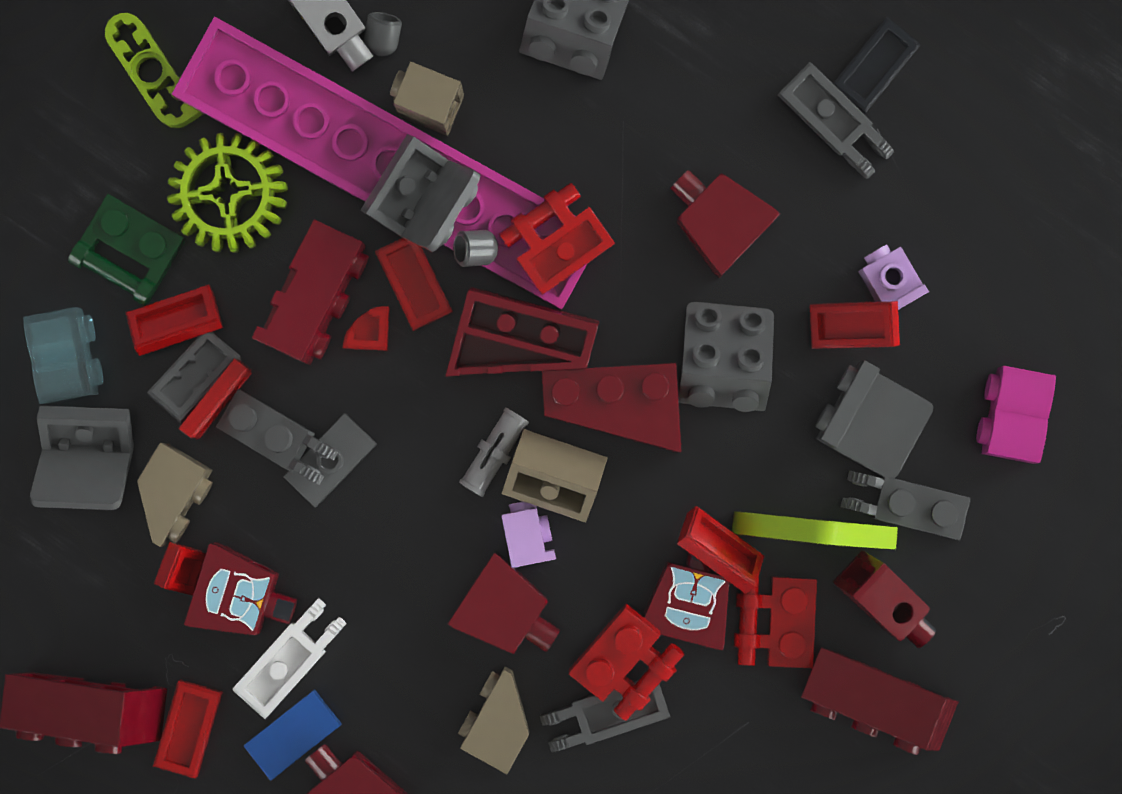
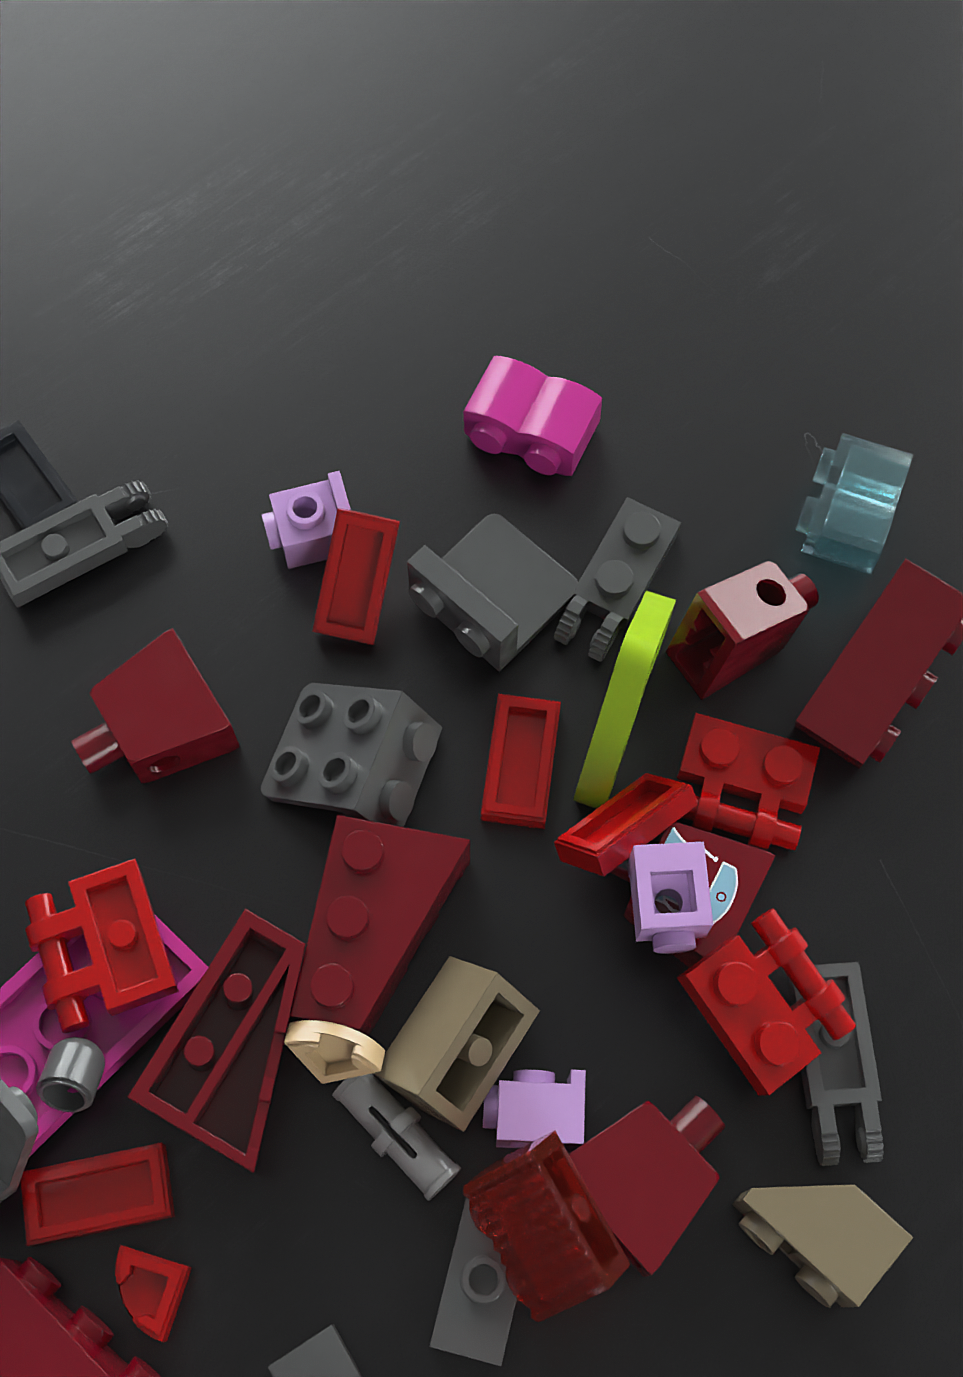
camera: 75 degrees left, 20 degrees down
(423, 526) = (475, 1298): none -> dark grey plate
(458, 555) = (545, 1227): none -> clear red brick
(529, 402) = (333, 1050): none -> tan tile
(690, 588) = (675, 872): none -> lavender brick
(755, 469) = (520, 761): none -> red tile
(1006, 661) = (855, 504): none -> clear light blue brick

